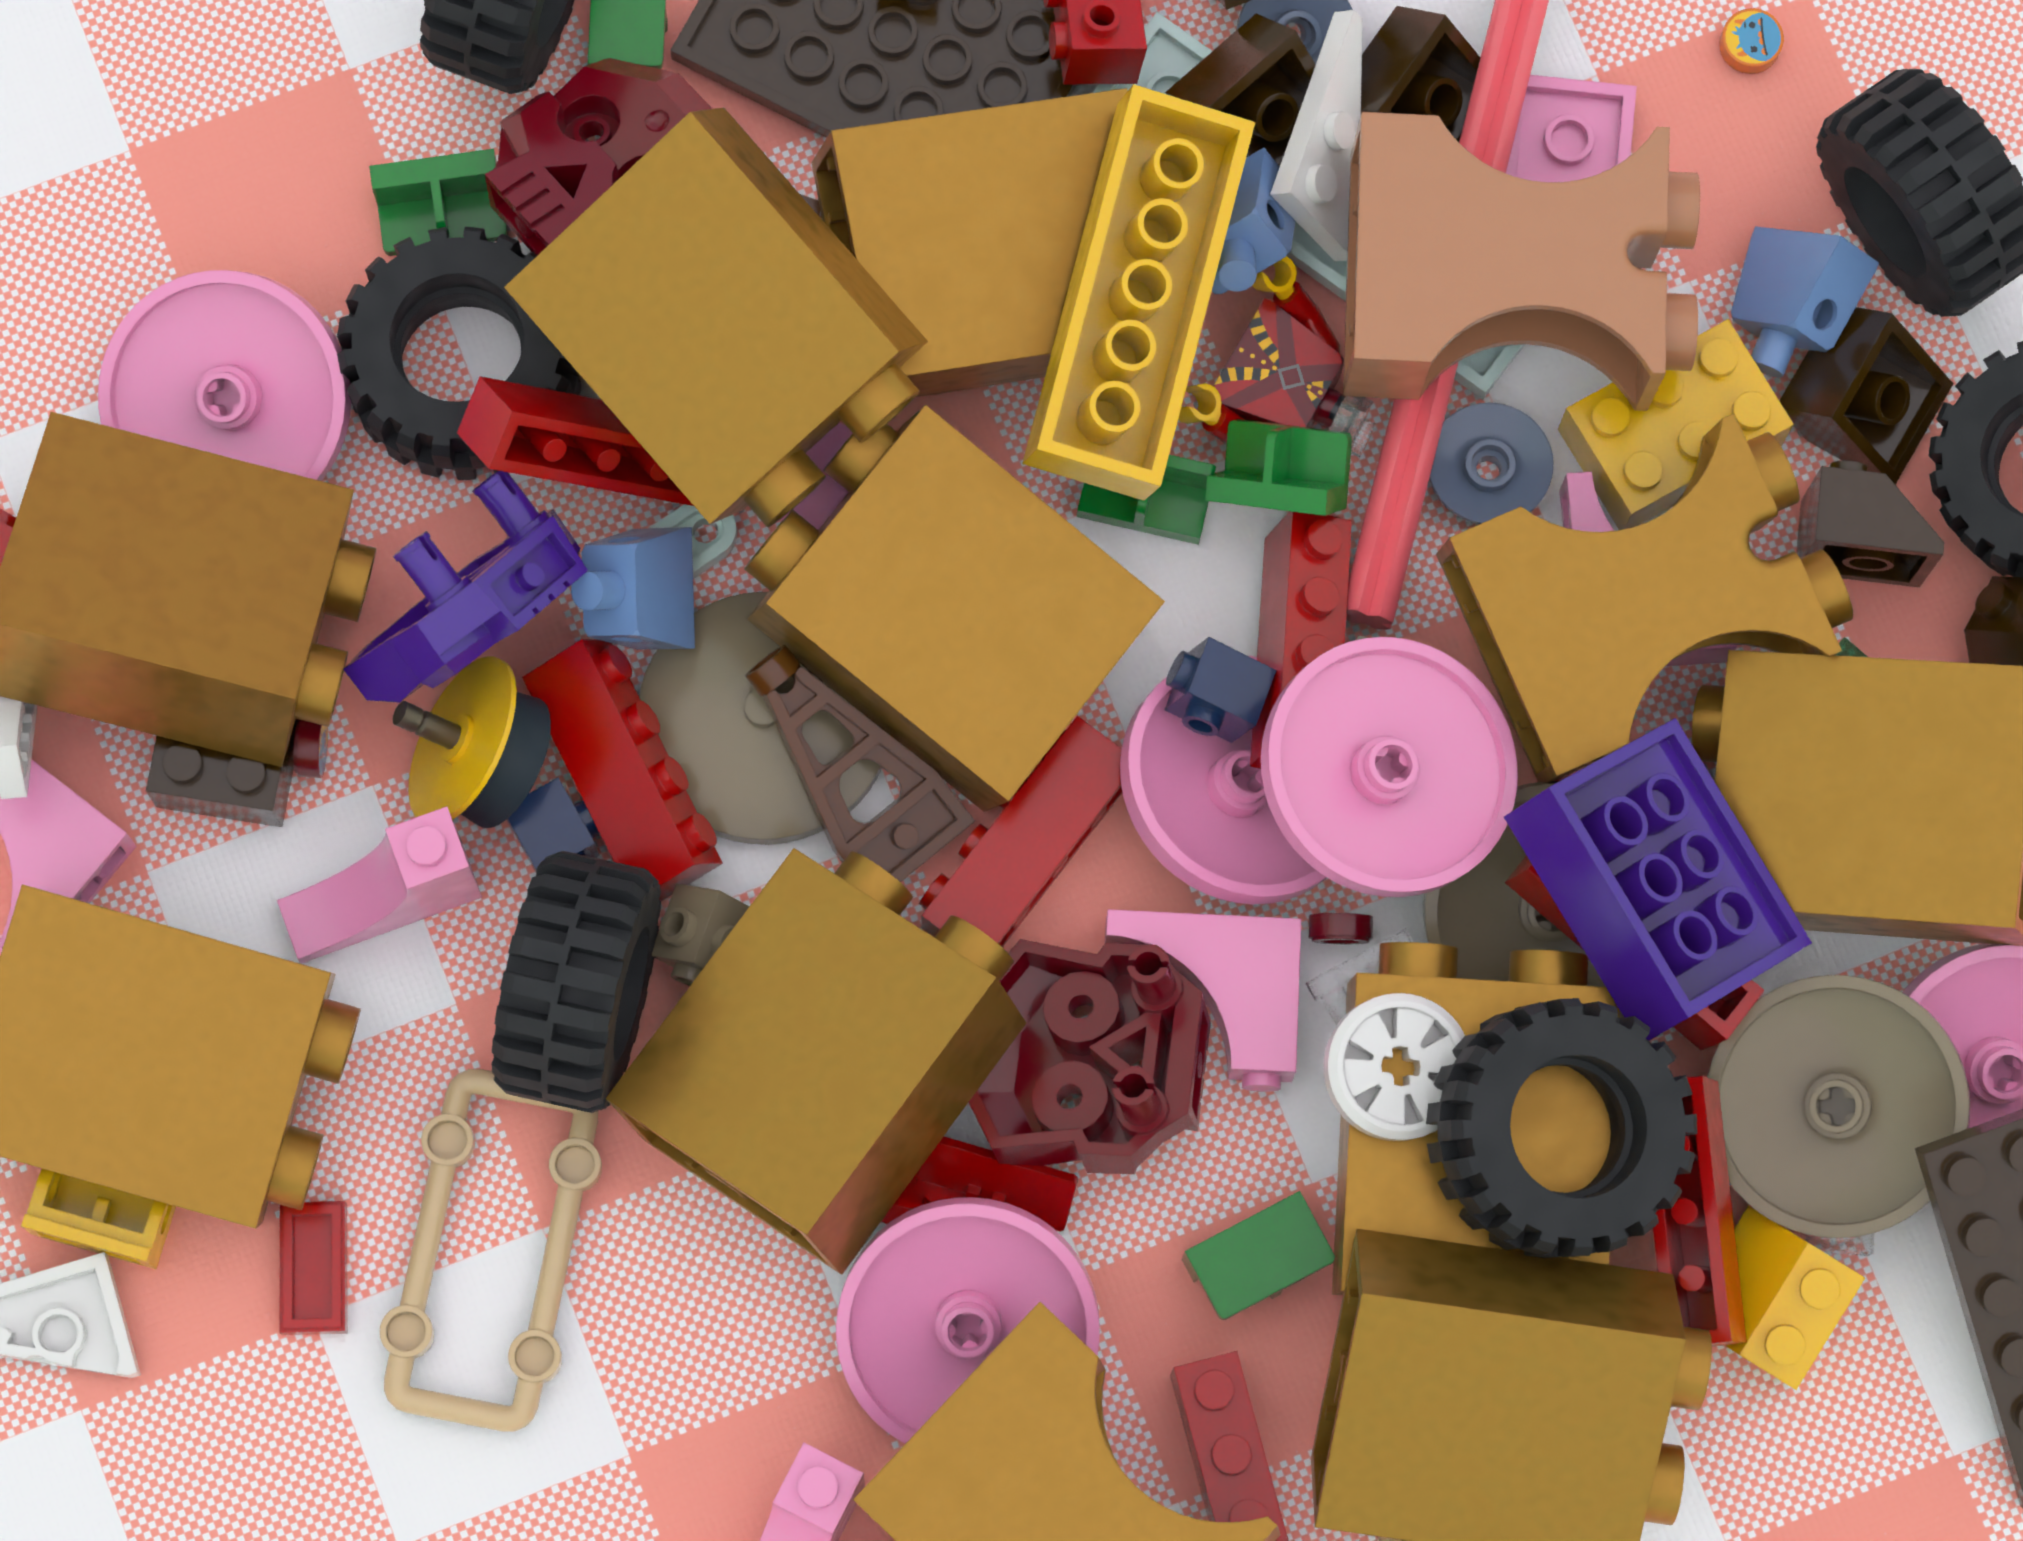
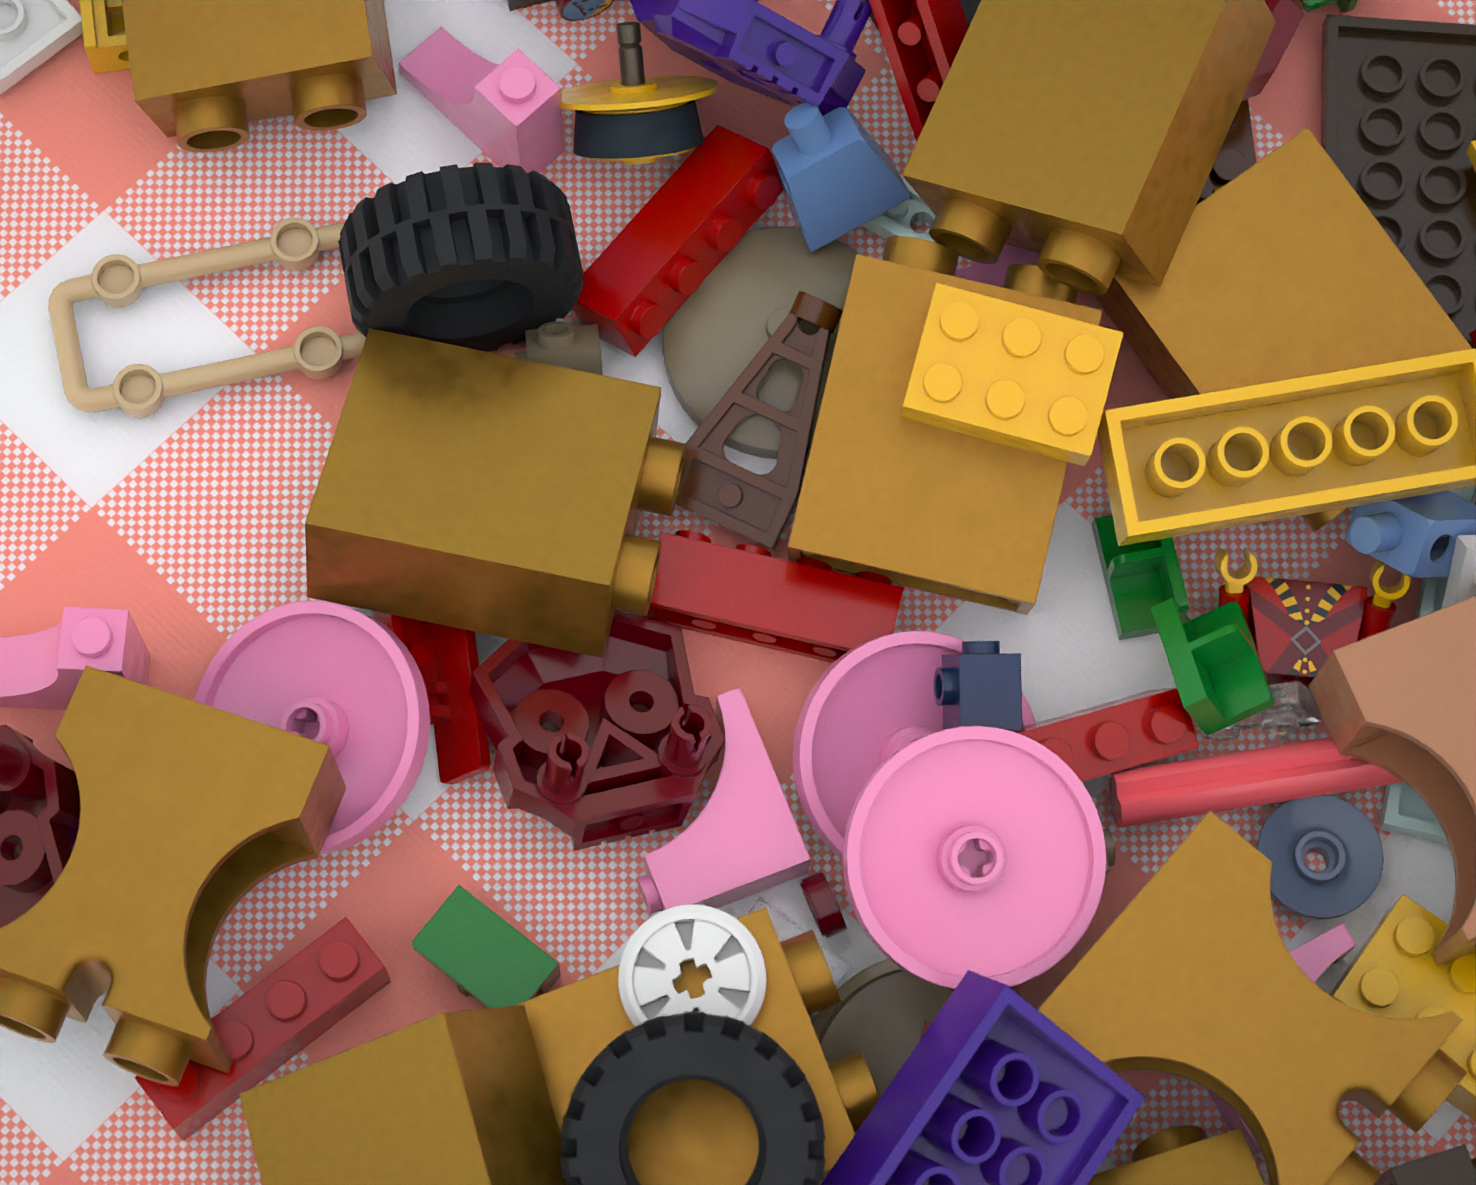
camera: 65 degrees right, 5 degrees down
(313, 1269) = (143, 190): red tile -> none
(552, 824) = (601, 206): dark blue brick -> none
(958, 517) = (1011, 374): none -> yellow brick

